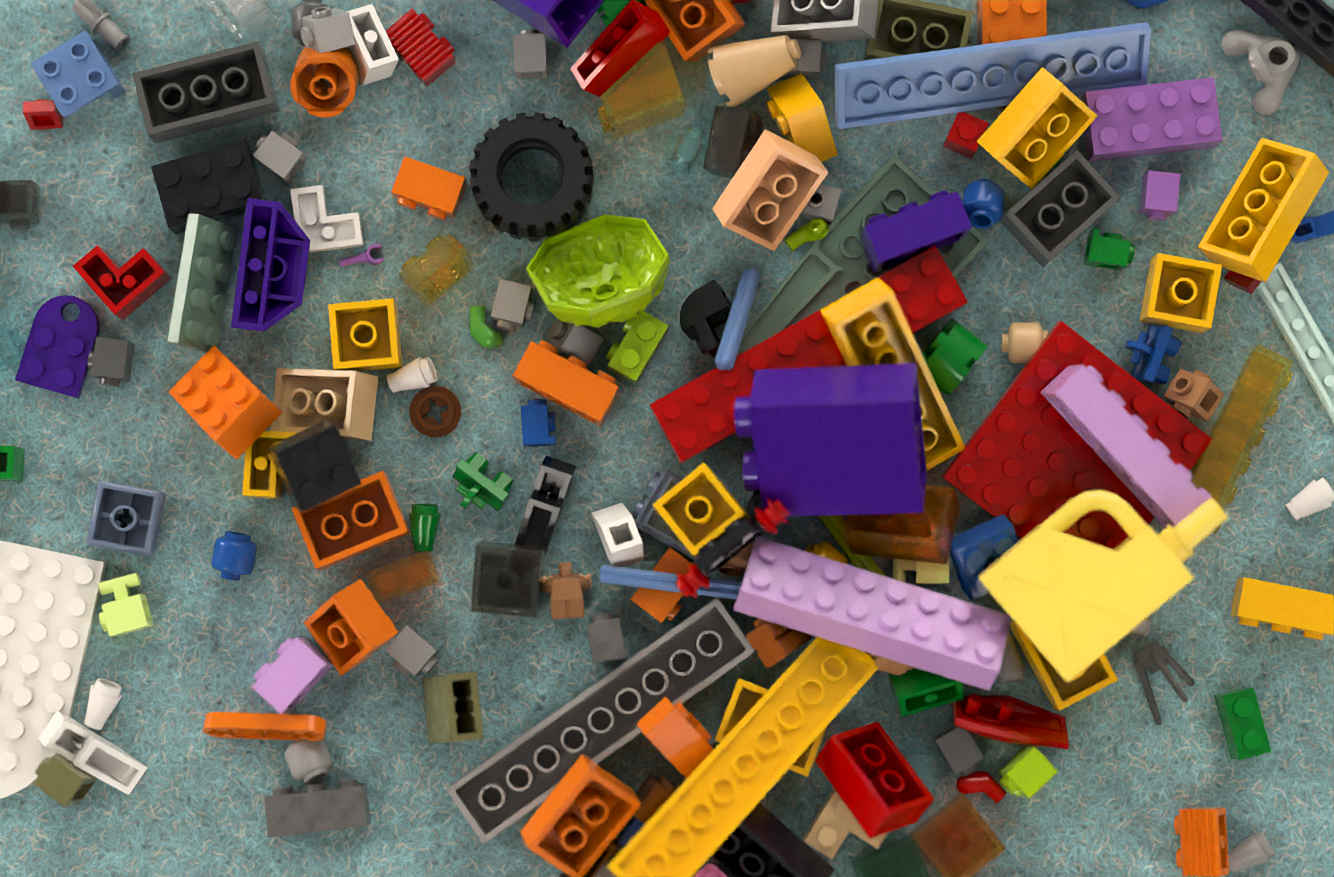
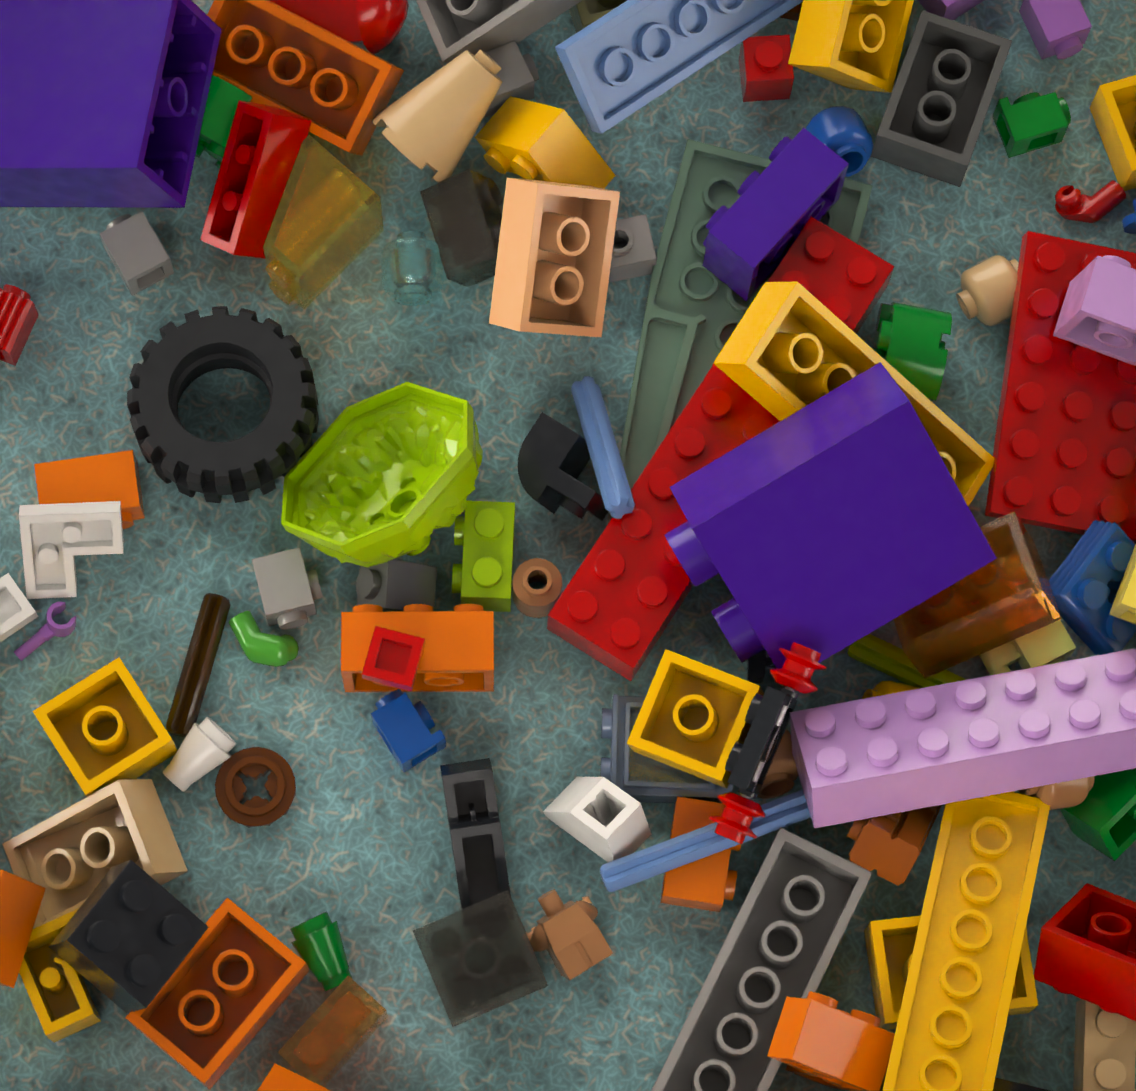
camera: 30 degrees left, 10 degrees down
(398, 206) = (59, 533): none -> white plate
(436, 269) = (159, 589): clear yellow slope -> none
(440, 322) = (198, 664): none -> dark brown axle
(477, 487) = (371, 855): green hips -> none
(544, 385) = (393, 658): none -> red plate
(605, 638) = (659, 965): flat silver brick -> none
(651, 390) = (531, 601): none -> medium nougat brick
(811, 231) = (633, 292): lime arm -> none
(1112, 320) = (1087, 208): none -> red arm

